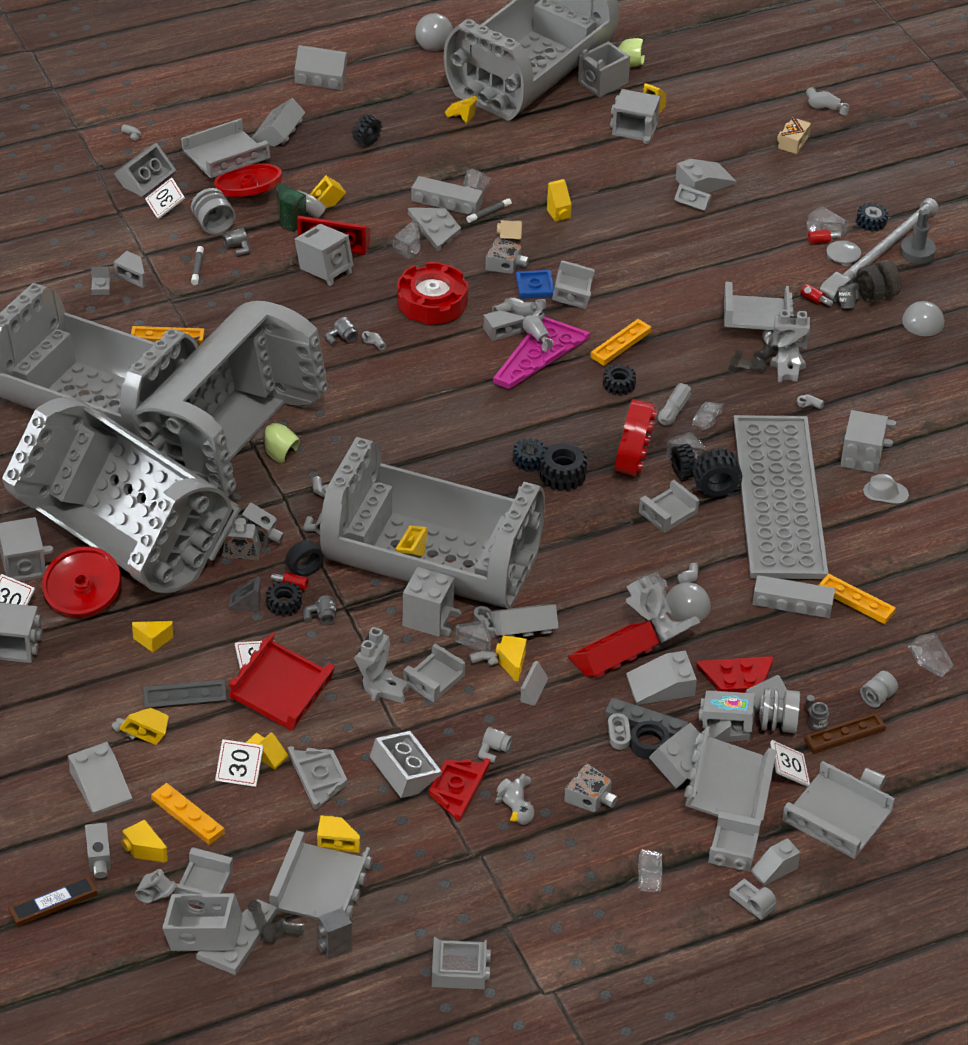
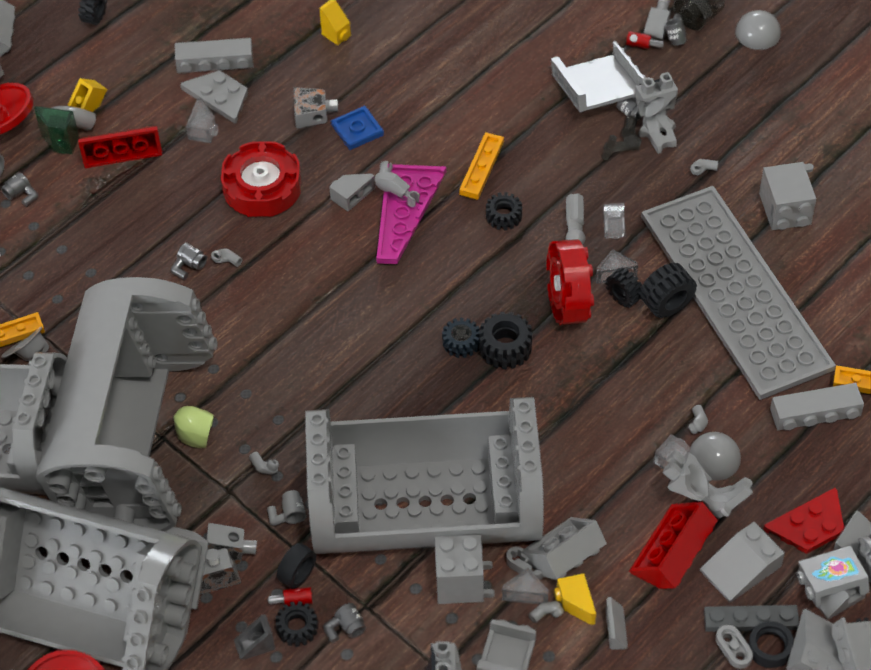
camera: 20 degrees left, 10 degrees up
(324, 252) = (124, 172): light grey container -> none
(413, 541) = (403, 498): yellow slope -> none
(476, 180) = (236, 27): clear slope -> none
(488, 210) = (264, 56): dark grey bar -> none
(510, 229) = (303, 73): tan brick -> none
(519, 307) = (359, 163): light grey arm -> none
(573, 284) = (399, 116): light grey panel -> none
(669, 507) = (636, 346): light grey panel -> none
(885, 489) = (831, 242): light grey piece -> none

